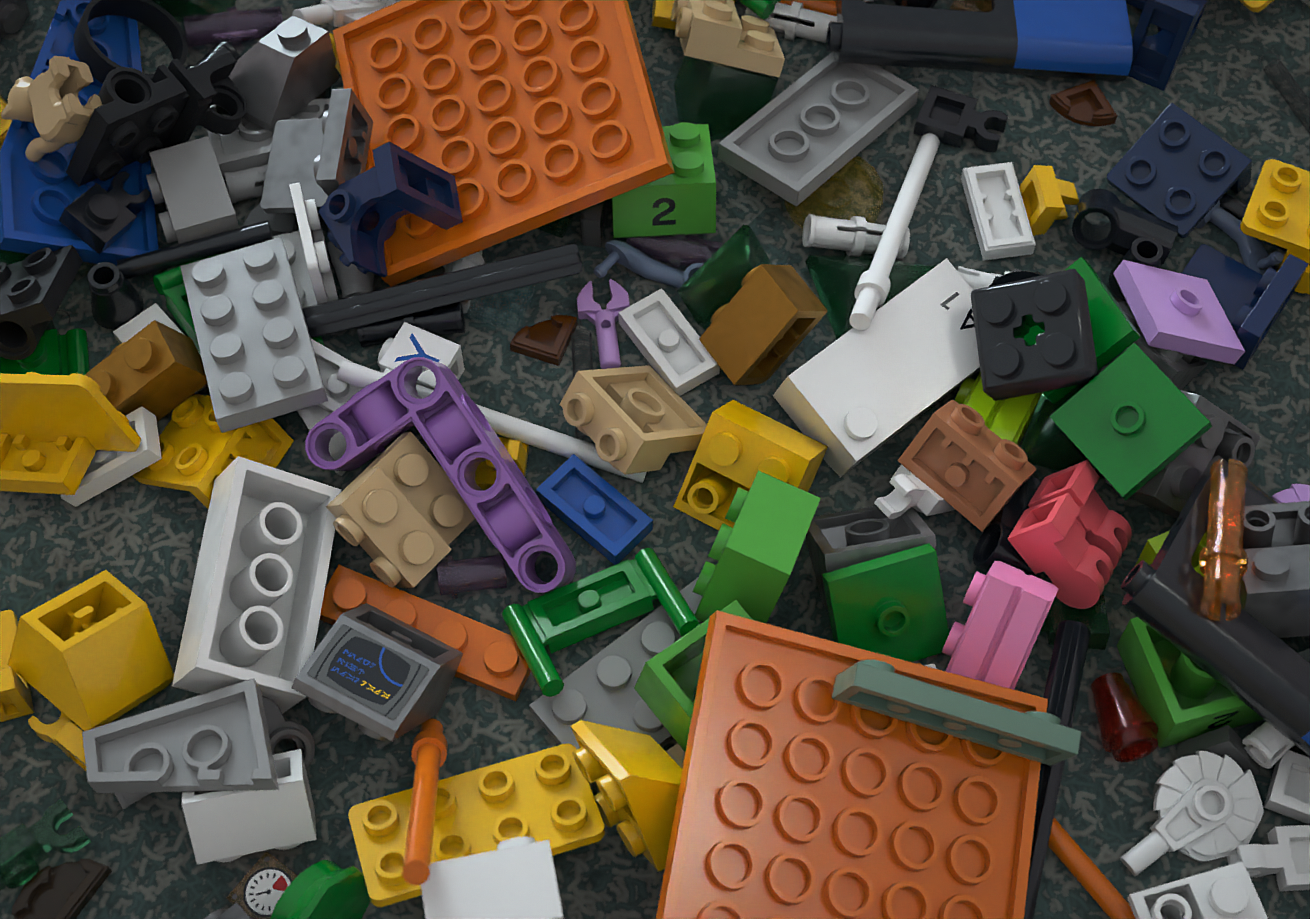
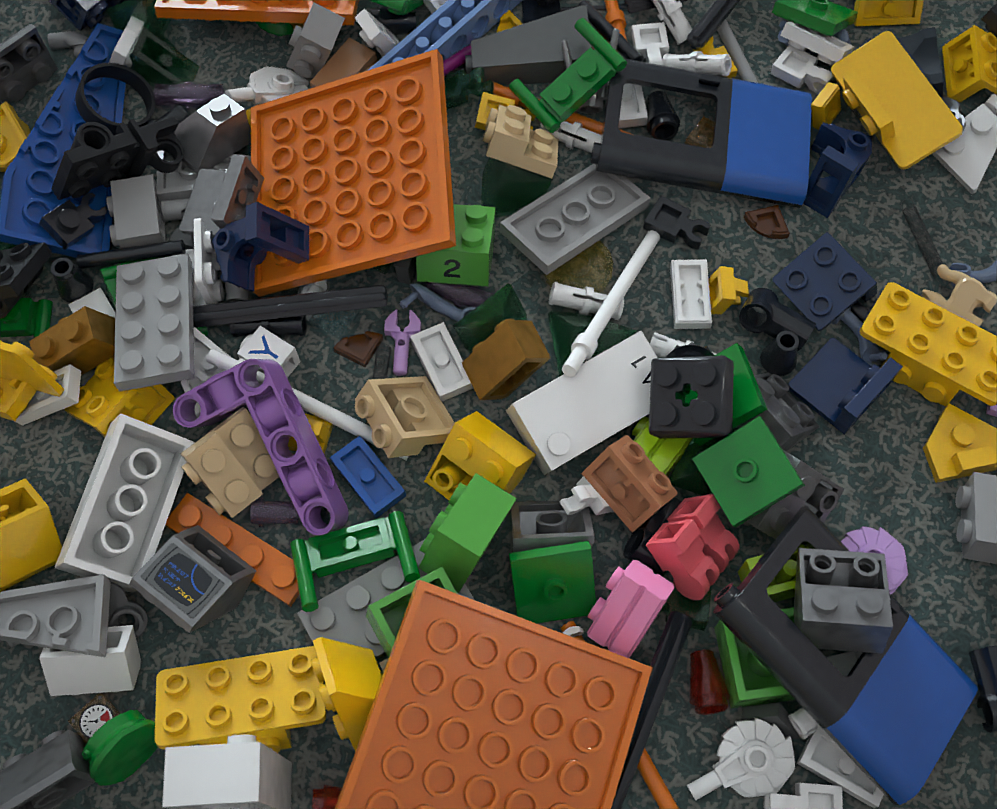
camera: 10 degrees right, 5 degrees up
(53, 105) = (42, 142): tan animal -> none
(428, 755) = (216, 642): orange bar -> none
(1028, 735) = (635, 696): sand green plate -> none
(1178, 312) = (801, 390): lavender plate -> none
(1223, 558) = (790, 591): clear orange pin -> none

